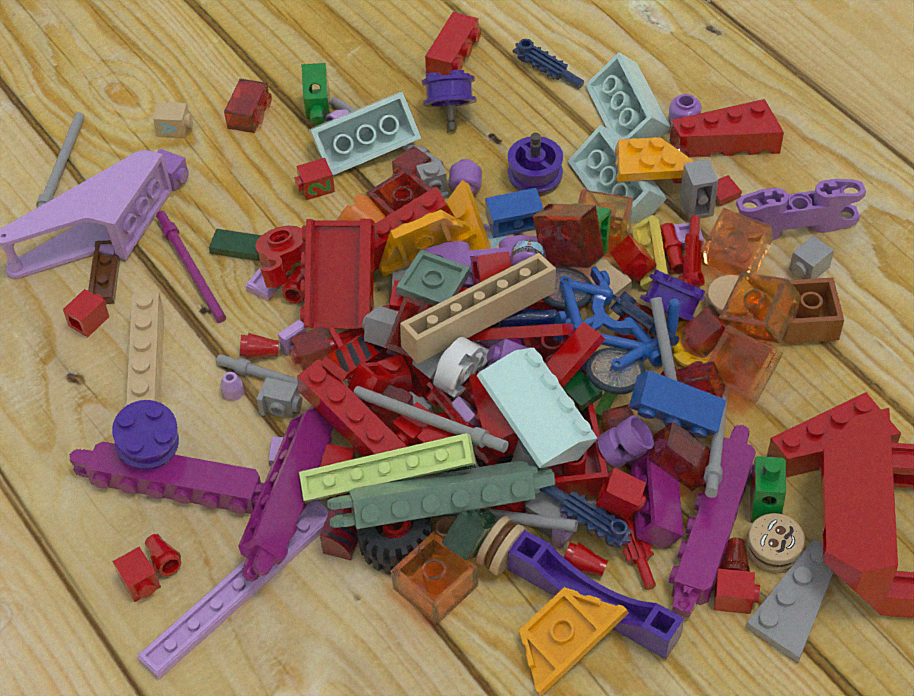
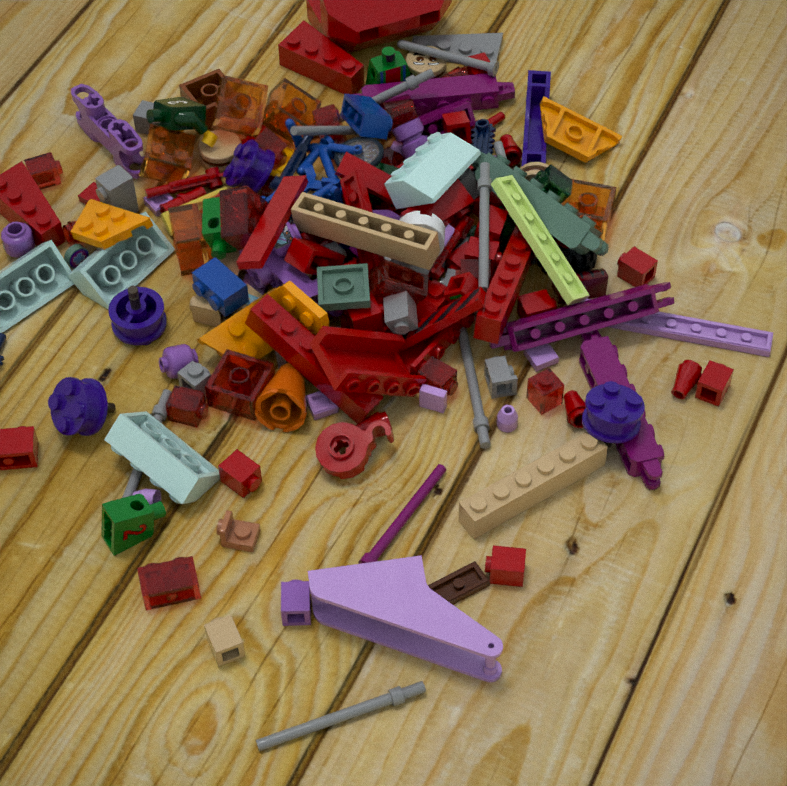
camera: 120 degrees left, 0 degrees up
(198, 443) = (574, 408): none -> red cone
(234, 244) = (351, 500): dark green tile -> none
(234, 424) = (545, 391): none -> clear red brick
(256, 346) = (458, 422): red cone -> none
(257, 286) = (384, 458): lavender tile -> none
(263, 162) = (237, 533): none -> nougat bracket
(328, 588) = (636, 267): none -> red brick
(537, 240) = (271, 223): none -> red tile
(712, 584) = (492, 66): none -> light grey bar
(770, 251) = (181, 115): none -> dark green torso
(775, 157) = (44, 170): none -> clear red brick

